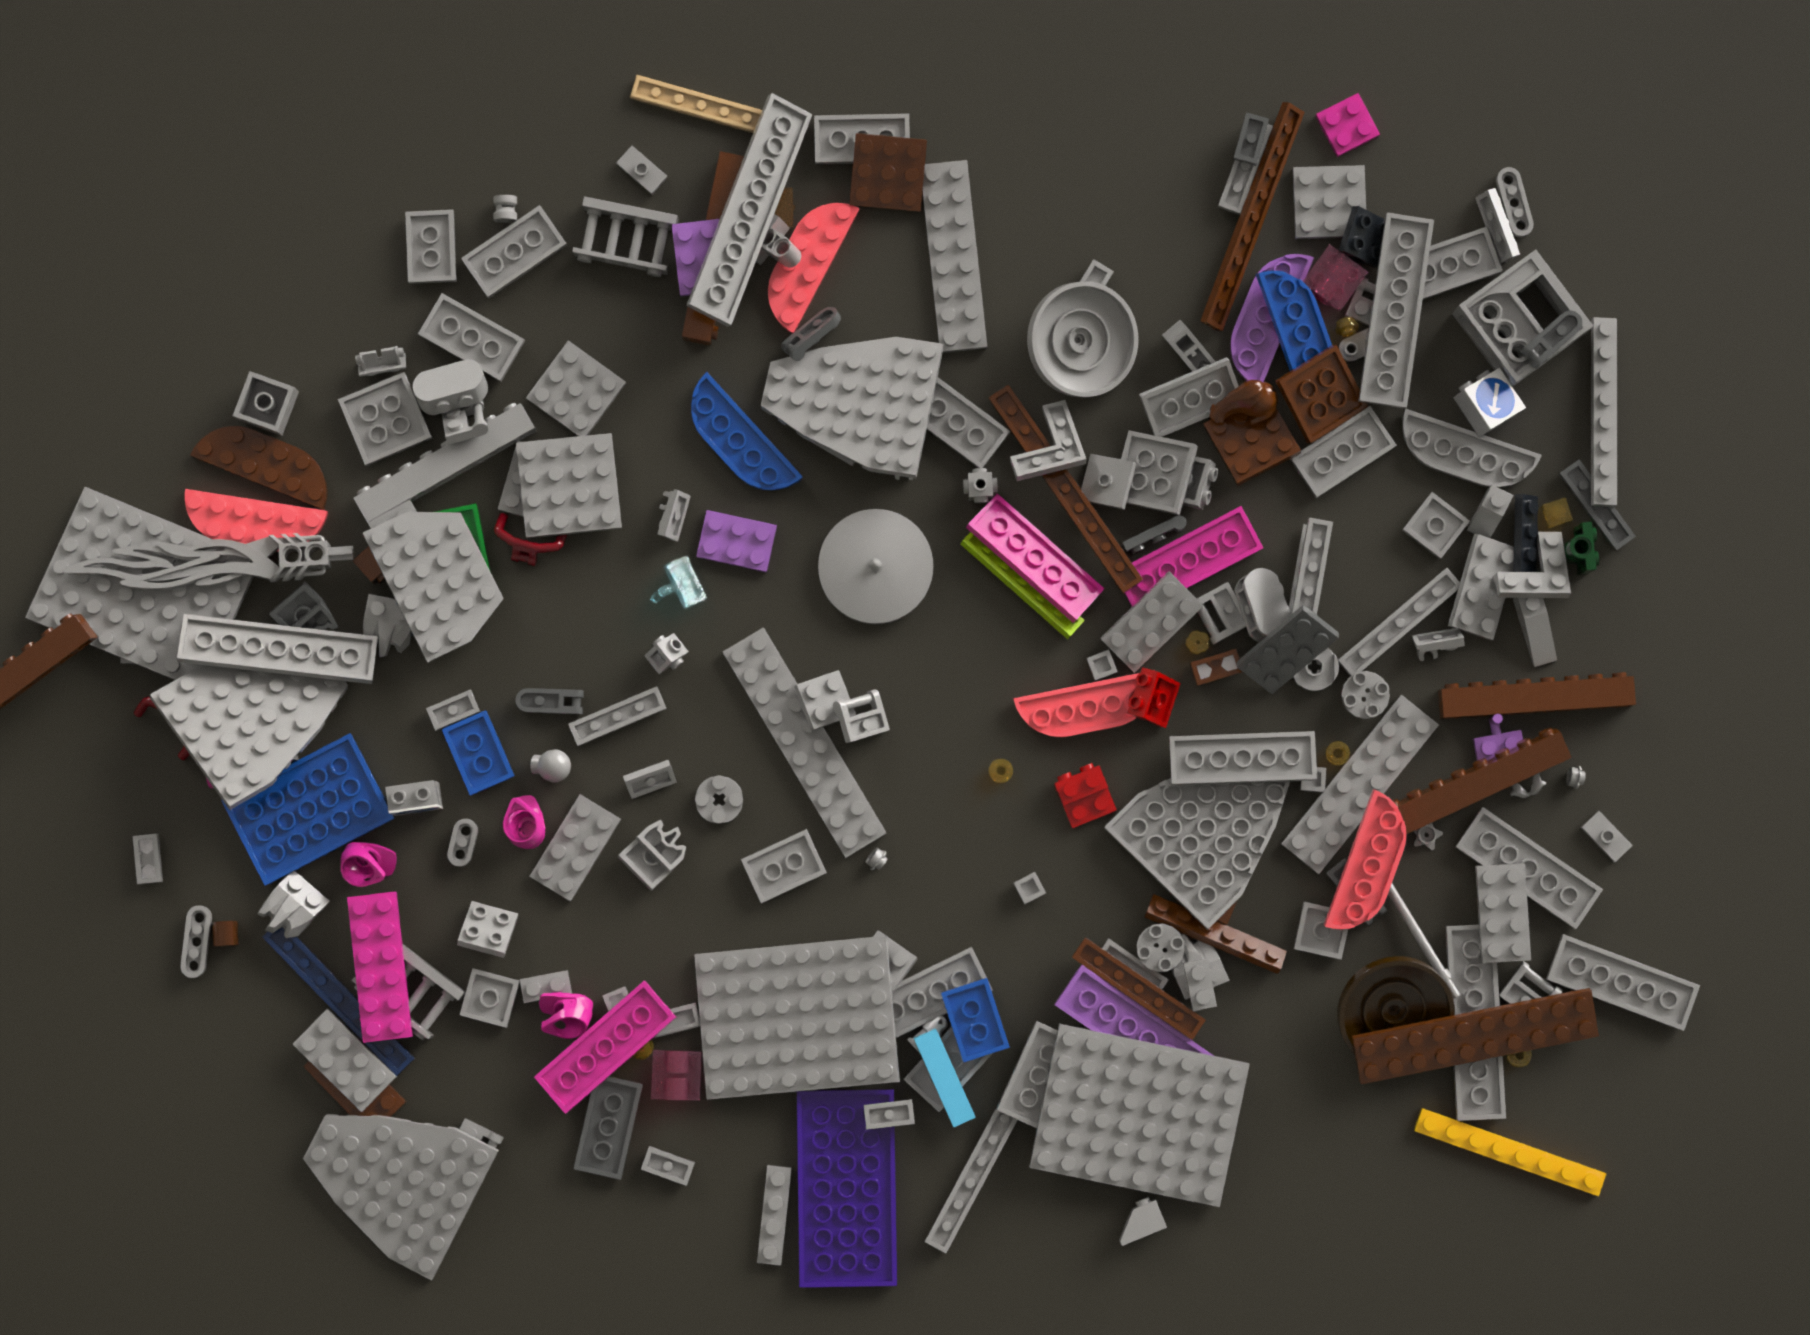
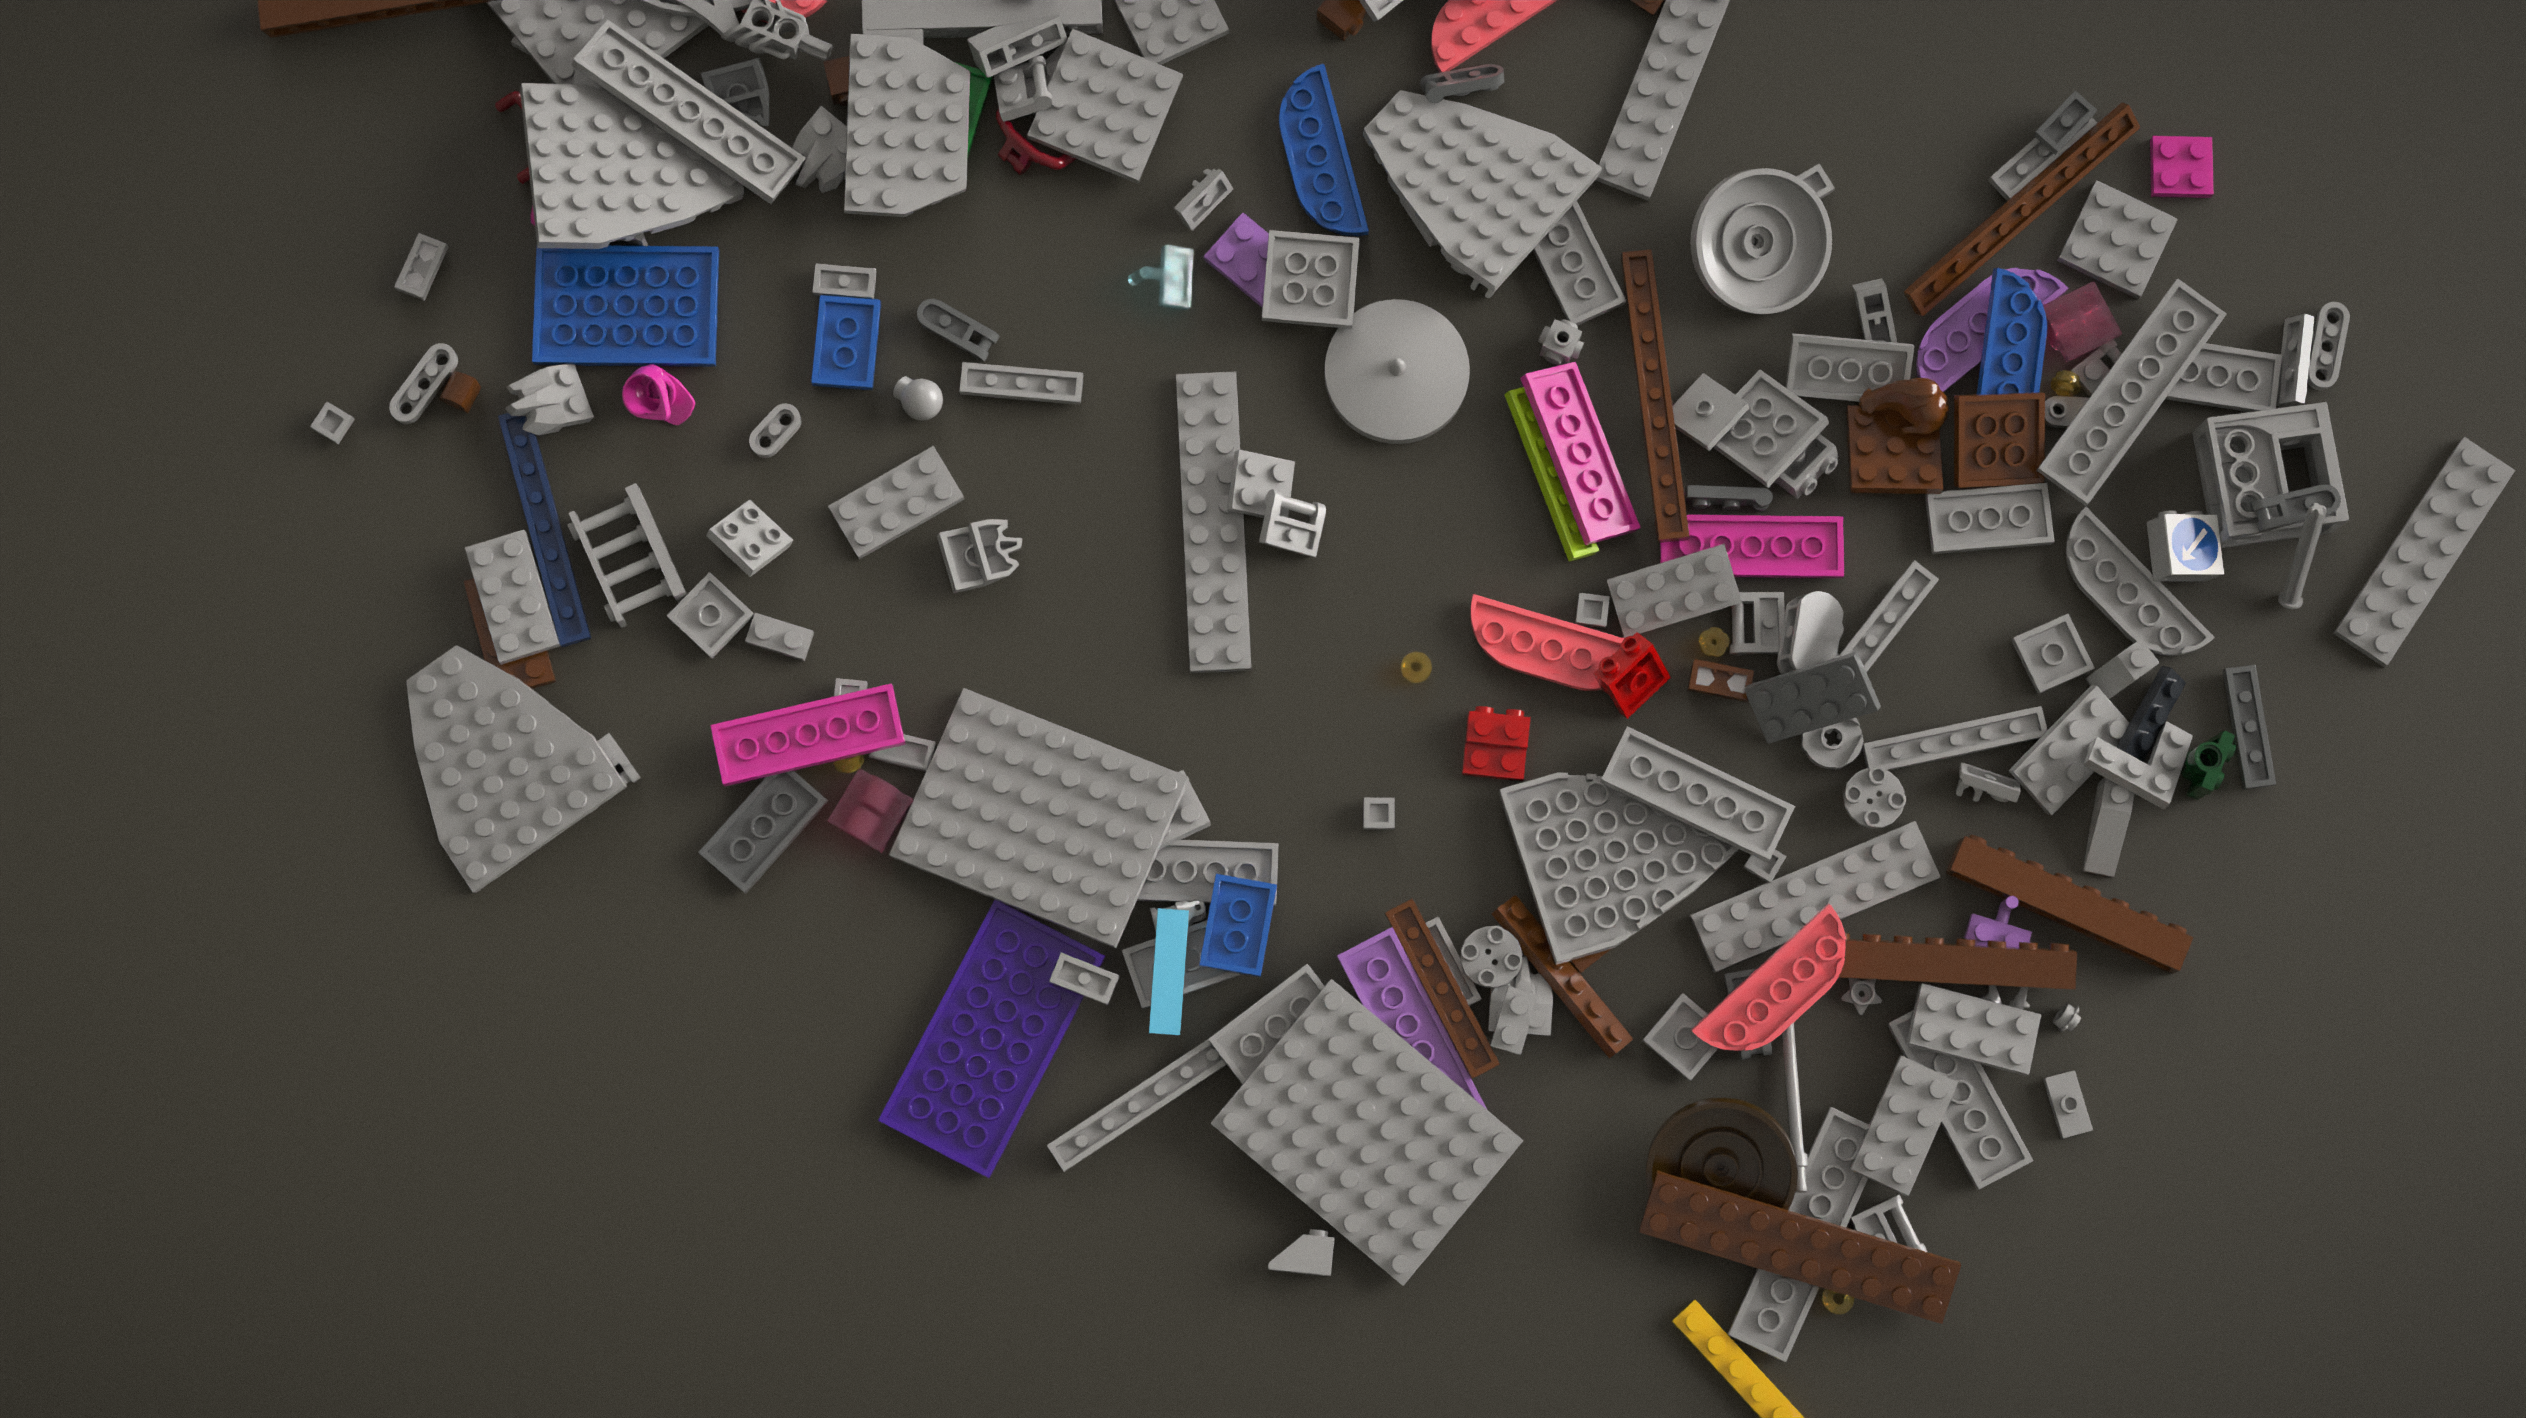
camera: 25 degrees right, 5 degrees down
(147, 1004) = (332, 422): none -> light grey plate
(379, 967) = (607, 514): dark pink plate -> none
(414, 797) = (748, 351): light grey piece -> none
(480, 475) = (1015, 43): none -> light grey slope
(498, 509) = (1013, 89): none -> light grey plate
(524, 822) = (855, 444): dark pink helmet -> none
(571, 1009) = (791, 671): dark pink helmet -> none
(650, 779) = (1019, 470): light grey plate -> none
(666, 653) = (1113, 342): light grey brick -> none
(668, 1165) = (805, 906): light grey plate -> none
(733, 800) = (1075, 548): light grey plate -> none
(774, 1215) = (894, 1025): light grey plate -> none
(781, 535) = (1310, 279): none -> light grey plate
(783, 866) = (1116, 644): light grey plate -> none
(876, 859) = (1224, 691): light grey plate -> none
(1063, 455) = (1674, 354): light grey plate -> none
(1345, 753) = (1814, 841): clear yellow plate -> none
(1363, 237) = (2135, 293): black plate -> none
(1516, 820) = (1973, 1029): none -> light grey plate
(1557, 512) = (2198, 712): clear yellow plate -> none
(1579, 396) = (2303, 556): none -> light grey axle
(1604, 412) = (2310, 628): light grey plate -> none
(1623, 982) = (2002, 1280): light grey plate -> none
(1654, 314) = (2424, 552): none -> light grey plate

